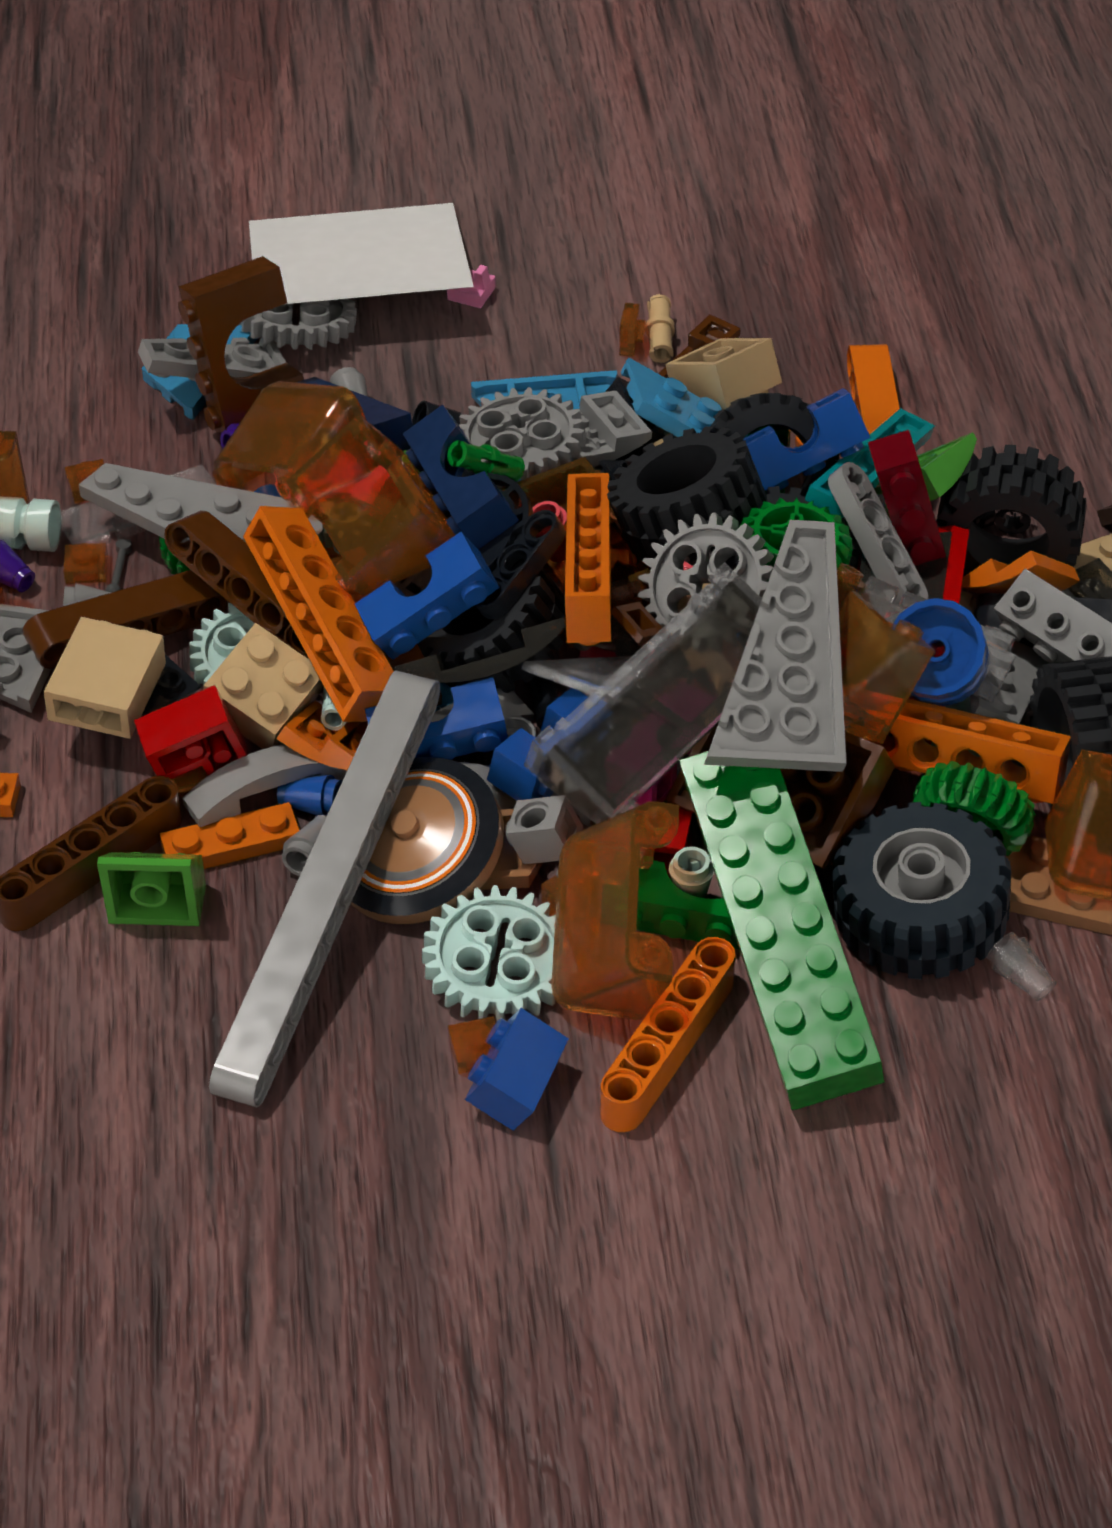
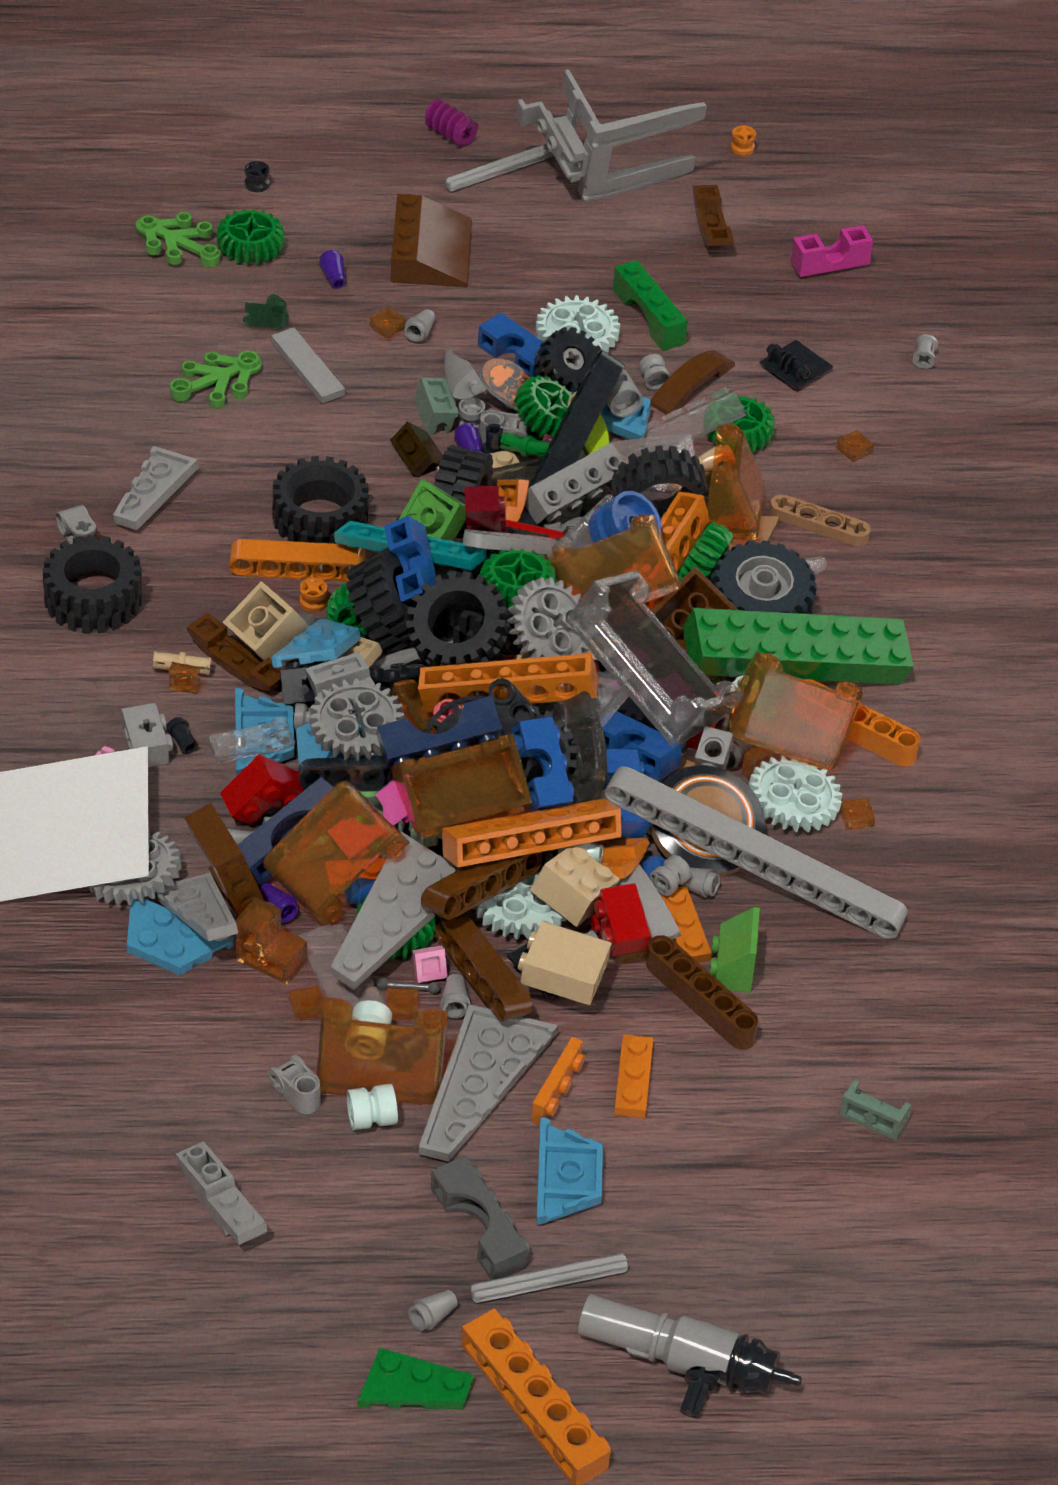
camera: 90 degrees left, 0 degrees up
(144, 567) = (429, 964): none -> bright pink tile
(170, 423) = (265, 945): none -> clear orange brick
(290, 793) = (673, 872): none -> light grey wheel
(426, 382) = (259, 787): none -> red brick
(469, 457) = (419, 719): green pin -> none
(507, 370) = (251, 741): none -> clear plate
(516, 1068) = (888, 787): blue brick -> none
(521, 306) = (146, 727): none -> light grey brick
(537, 337) = (179, 730): none -> black pin
(773, 261) = (92, 607): none -> black tyre
(788, 685) = (675, 580): light grey wing -> none
(881, 224) = (75, 523): none -> light grey piece
(980, 278) = (155, 485): none -> light grey wing
(992, 387) = (318, 482): none -> black tyre

